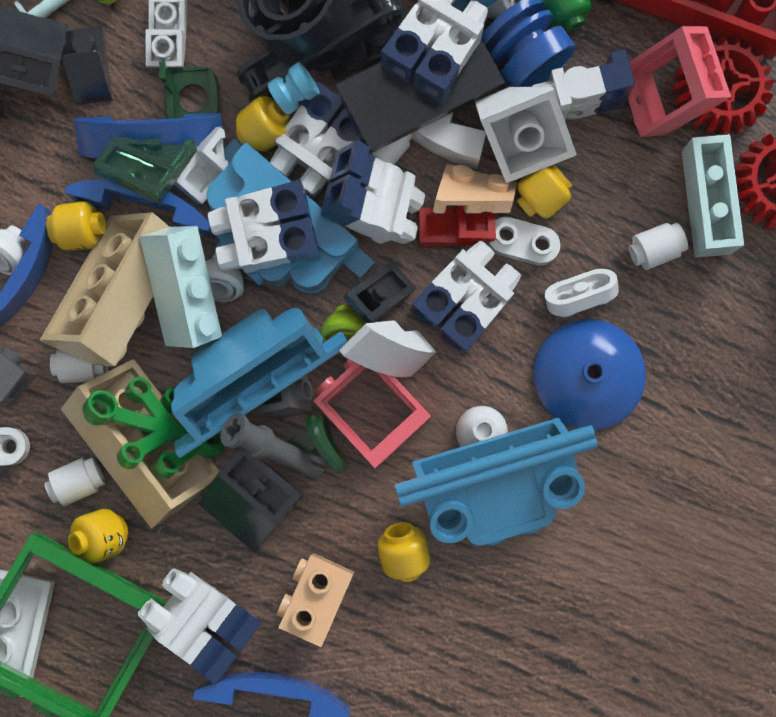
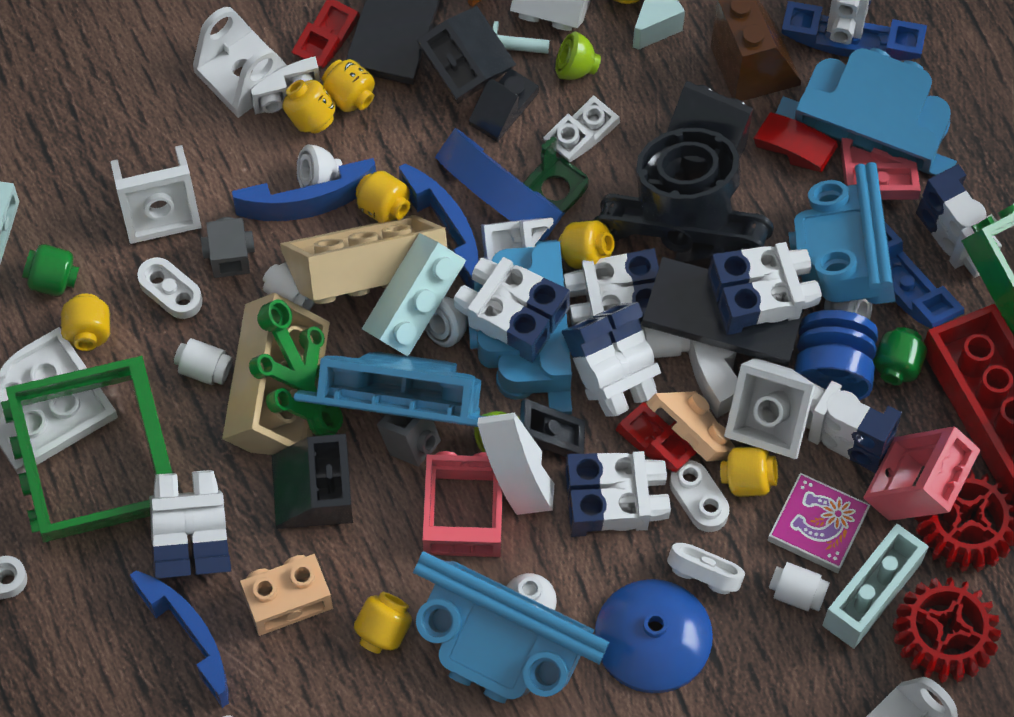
camera: 40 degrees right, 20 degrees down
(98, 536) = (181, 409): yellow head -> none
(144, 165) = (472, 195): clear green wing -> none
(261, 443) = (360, 442): dark grey pin -> none
(293, 88) = (632, 234): medium azure wheel -> none
(320, 437) = (403, 490): dark green piece -> none
(622, 183) = (818, 523): none -> tile

